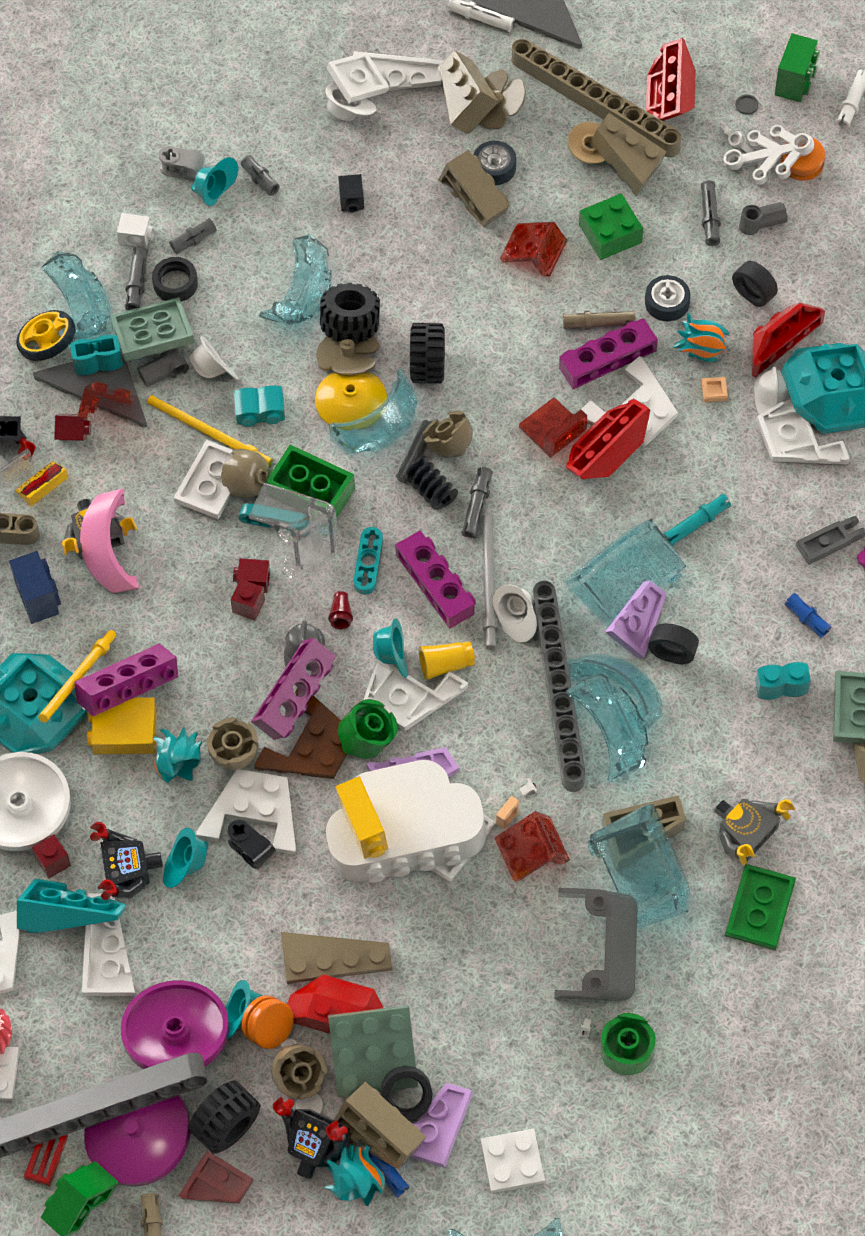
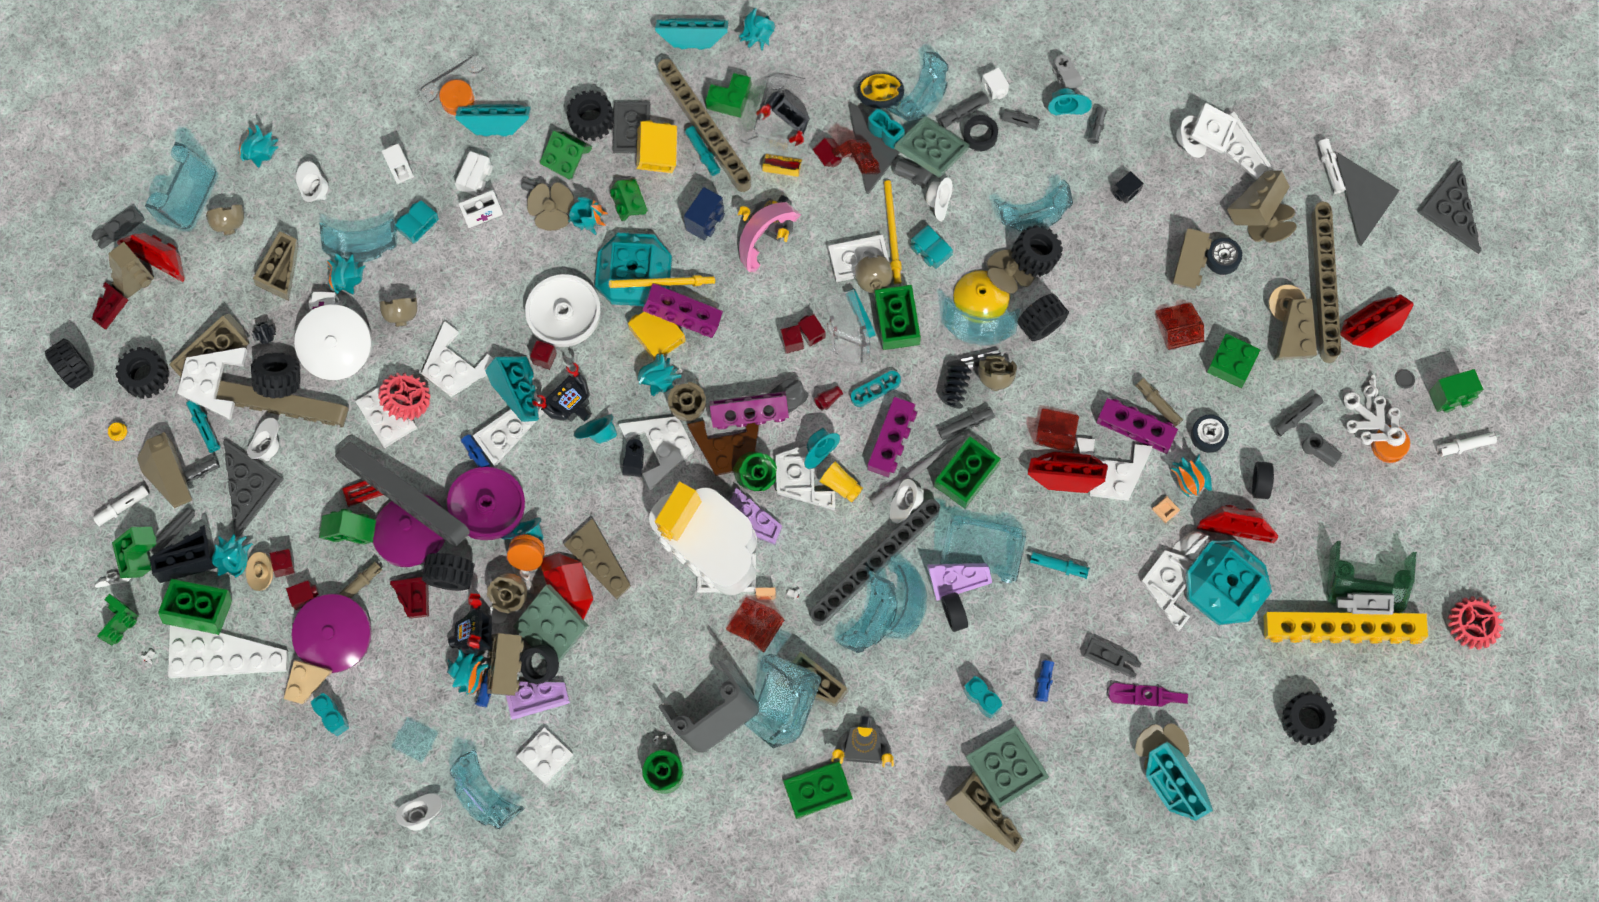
camera: 55 degrees right, 10 degrees up
(85, 1004) = (475, 452): none -> blue pin
(533, 534) = (967, 472): none -> green brick

